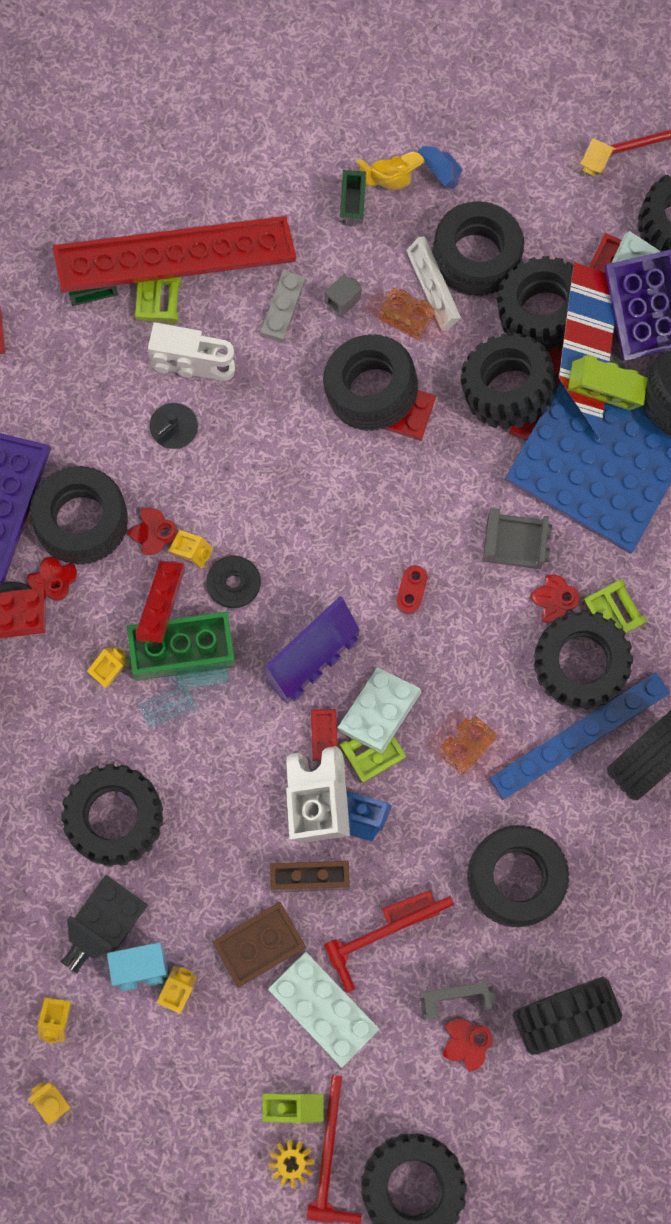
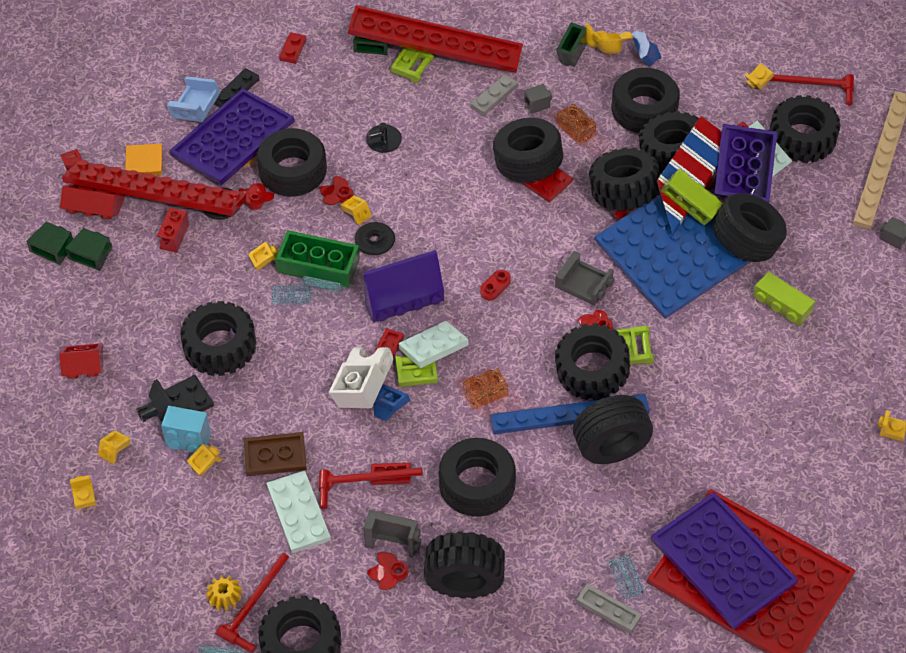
camera: 30 degrees right, 20 degrees down
(160, 602) = (317, 226): red plate -> none
(189, 353) = (414, 96): white brick -> none
(293, 1108) = (245, 559): lime slope -> none
(309, 876) = (330, 423): reddish brown brick -> none
(433, 283) = (604, 112): white tile -> none

